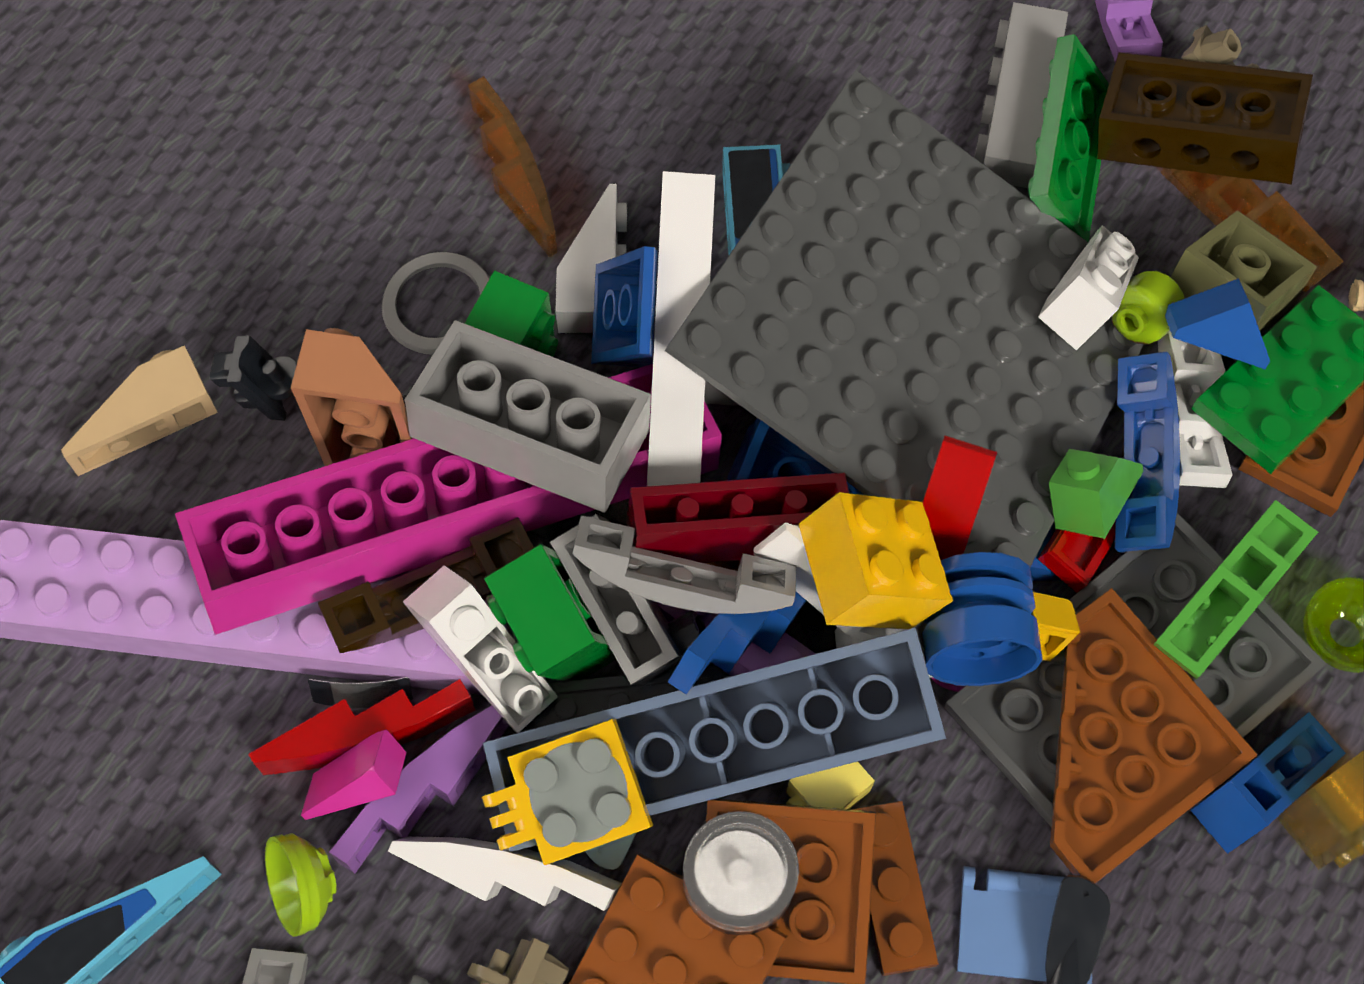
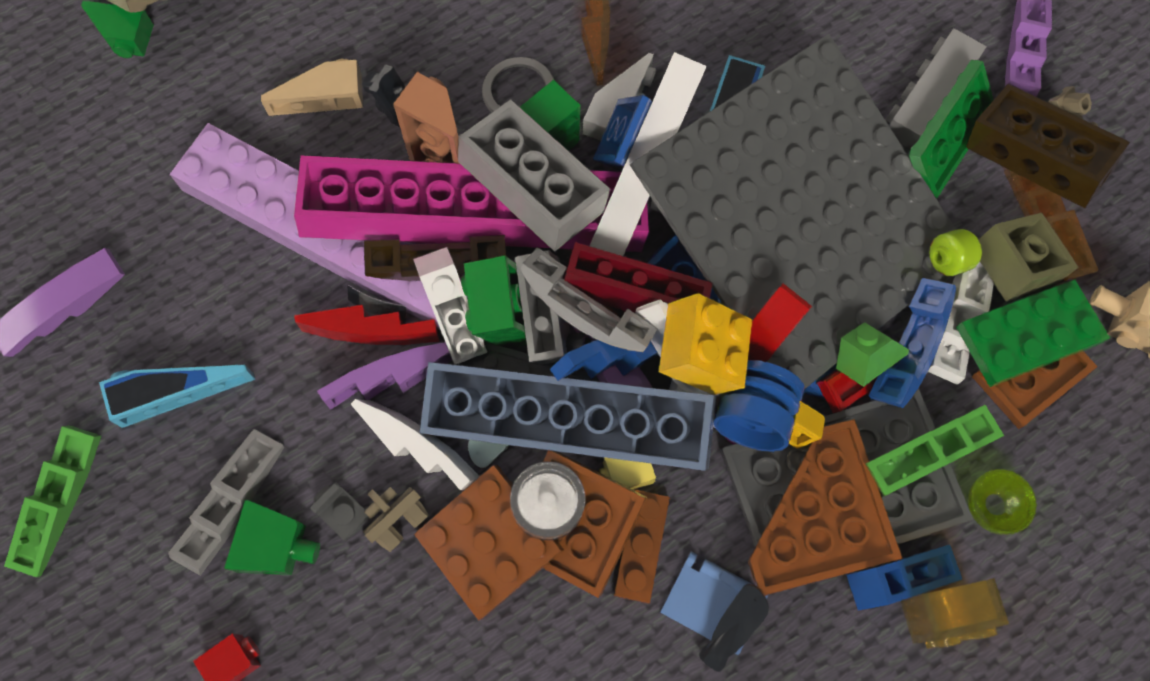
camera: 20 degrees right, 5 degrees up
(298, 882) = (294, 401): lime piece -> none
(356, 777) = (351, 353): dark pink slope -> none
(572, 794) = (468, 413): piece -> none
(1091, 288) = (923, 226): white slope -> none
(1220, 323) = (997, 279): blue slope -> none

